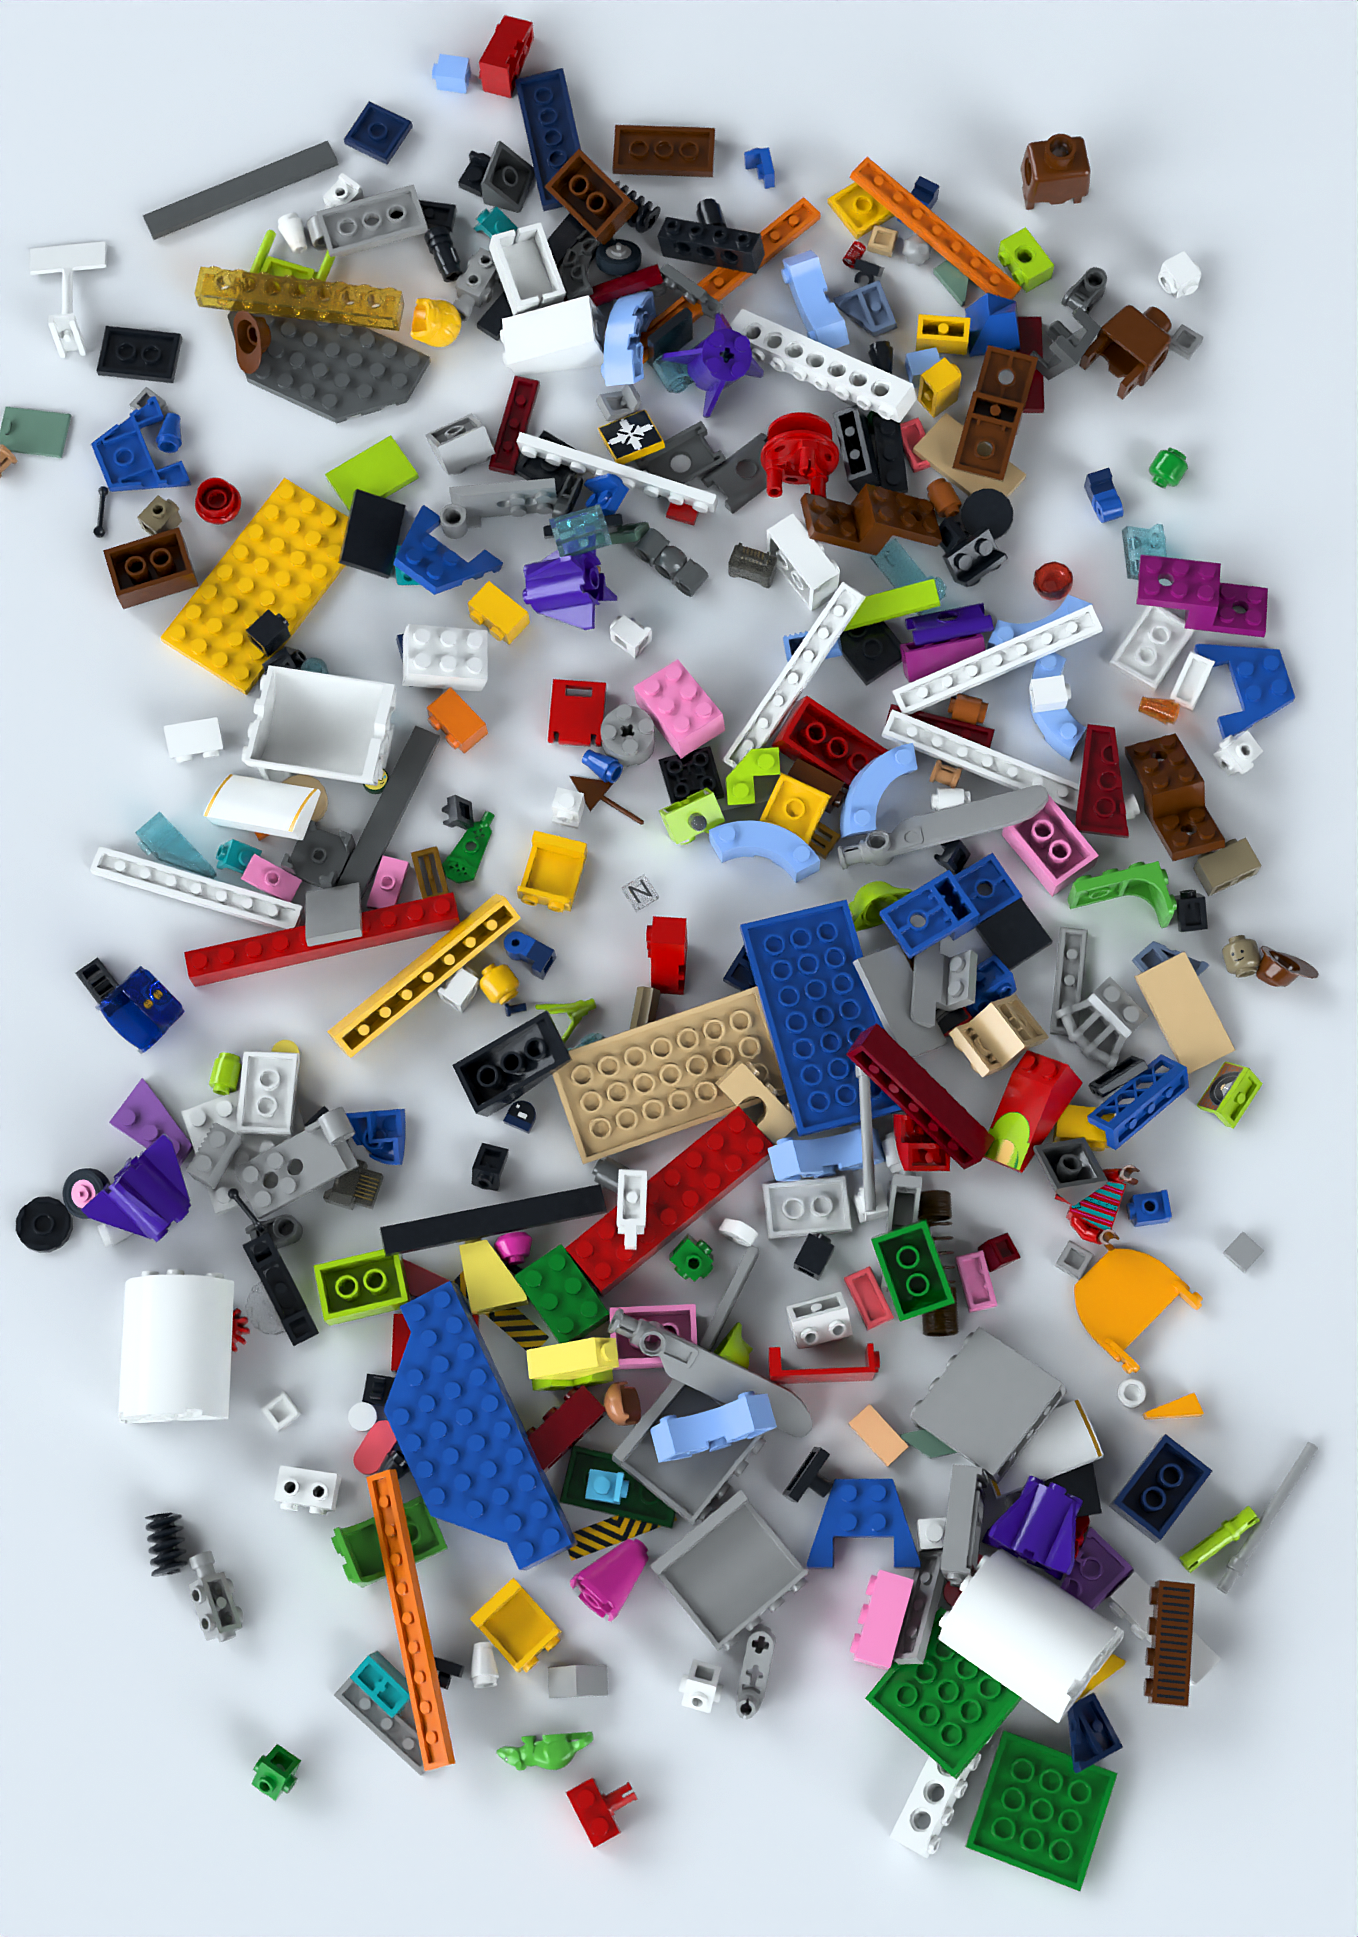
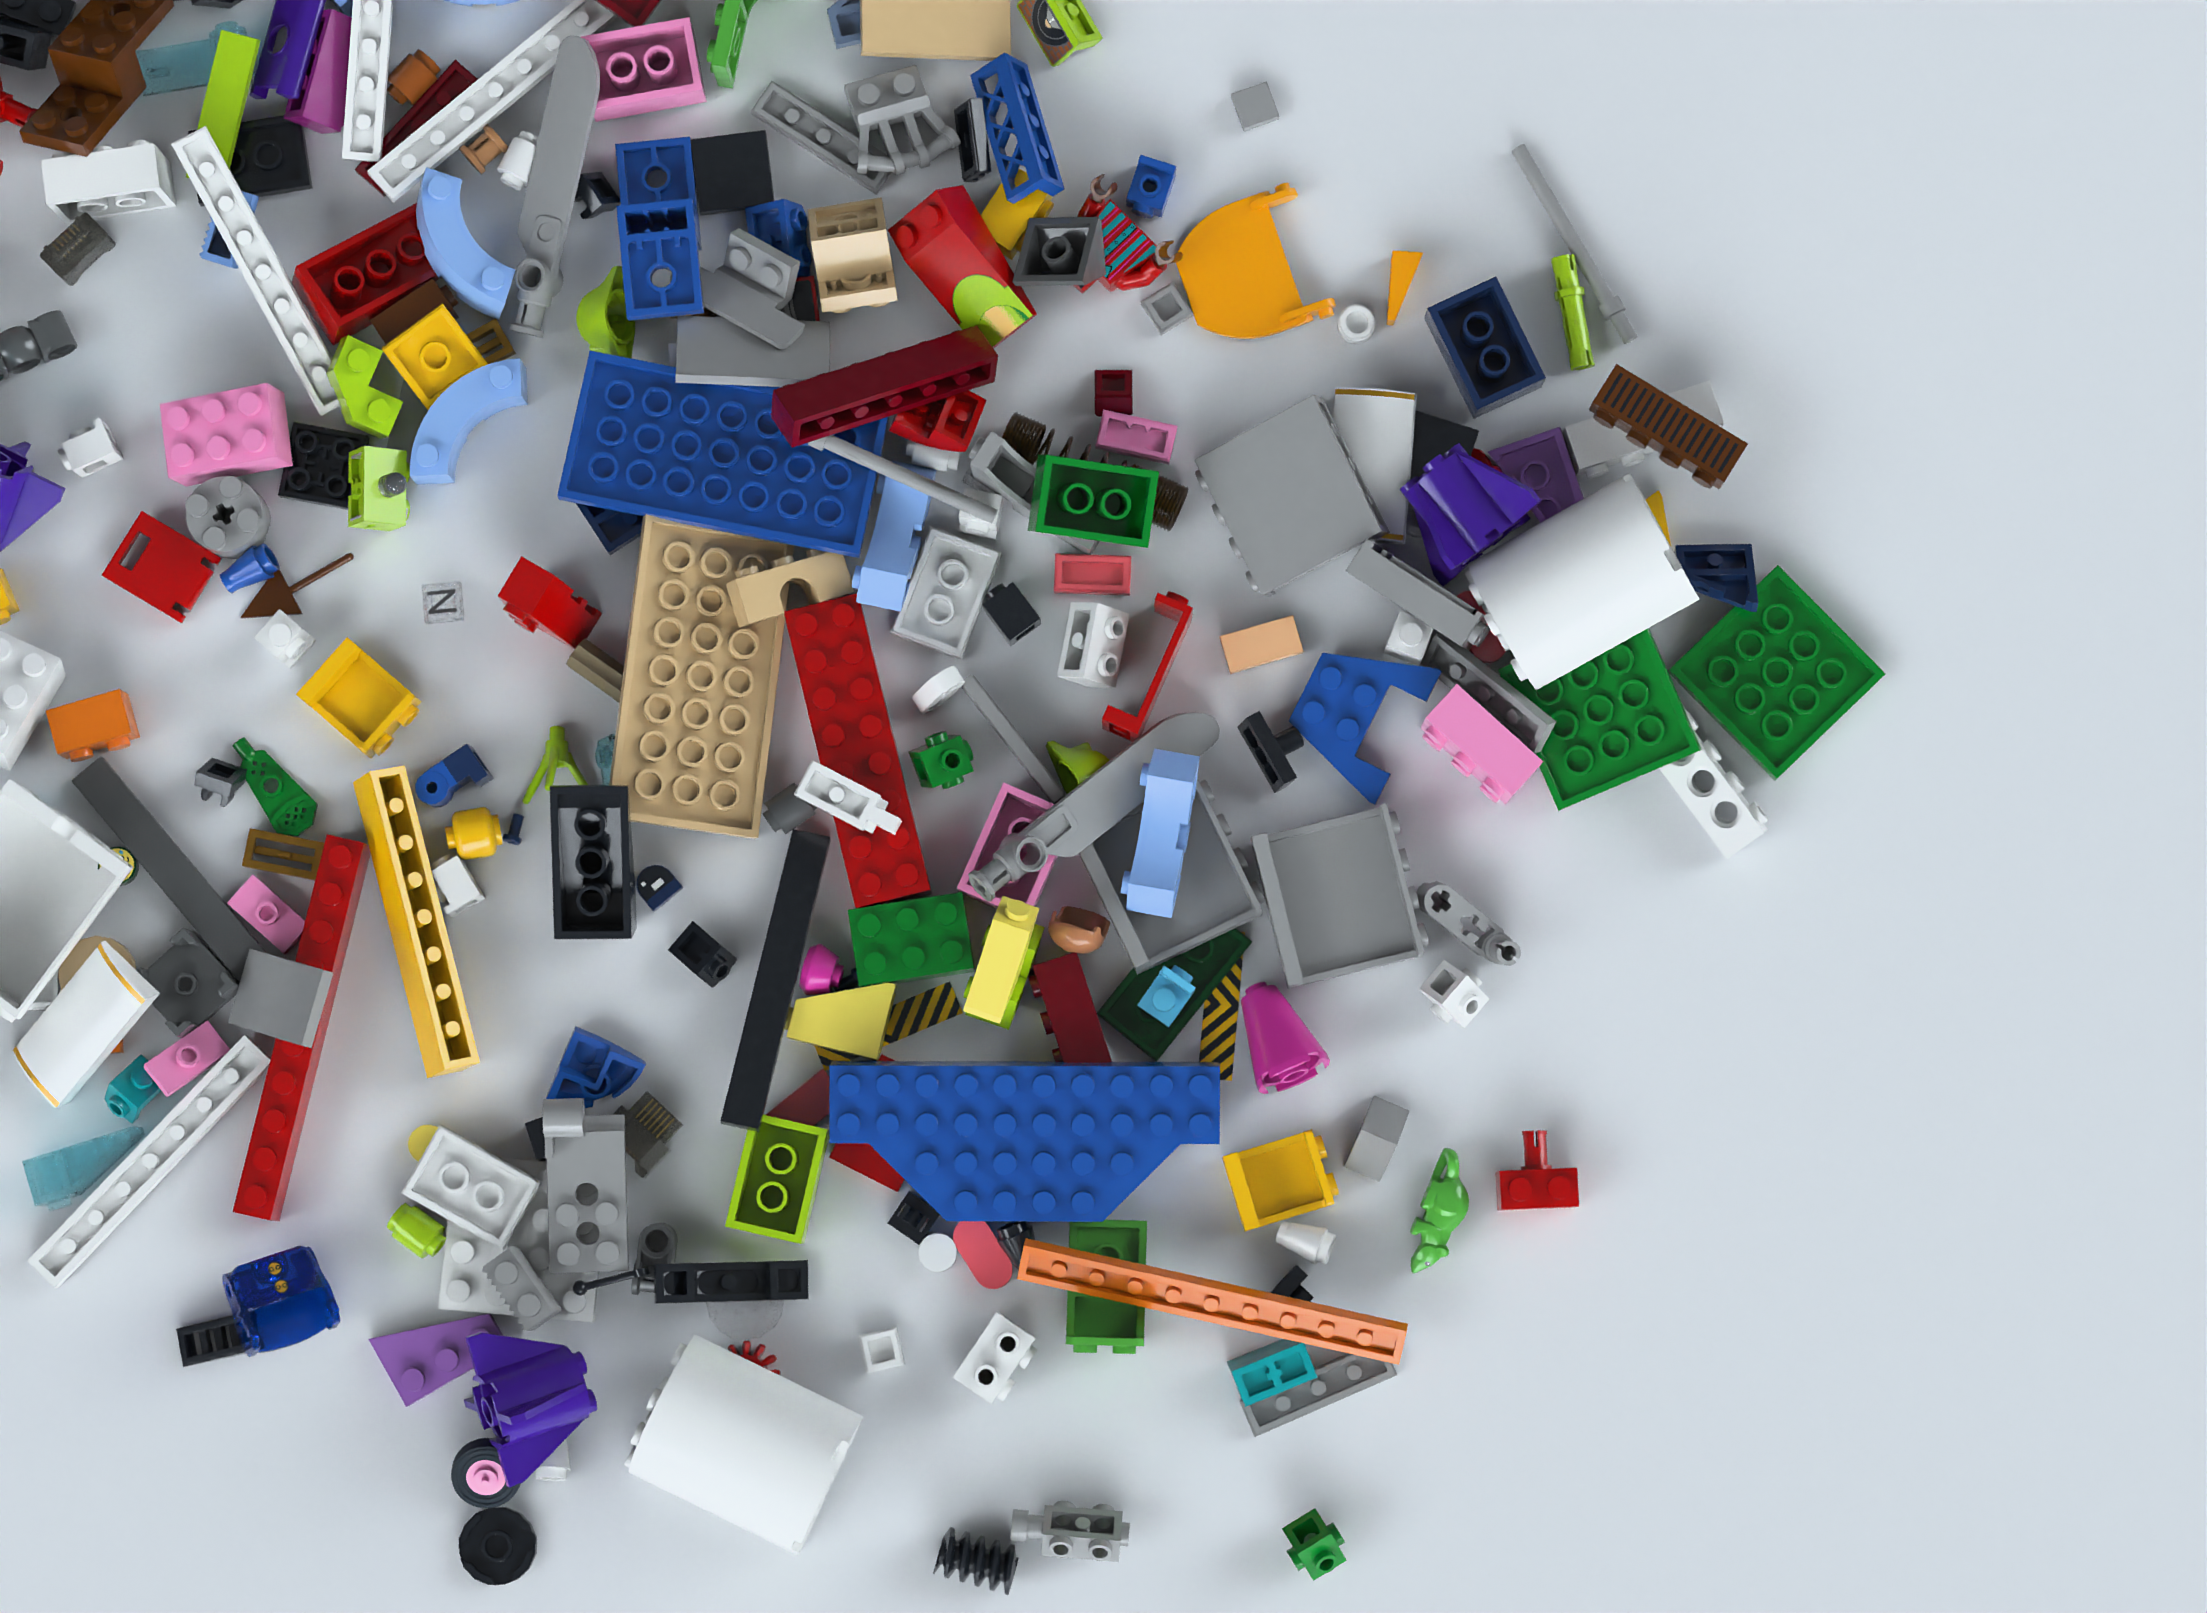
camera: 65 degrees left, 10 degrees up
(927, 1444) = (1299, 592): sand green tile -> none

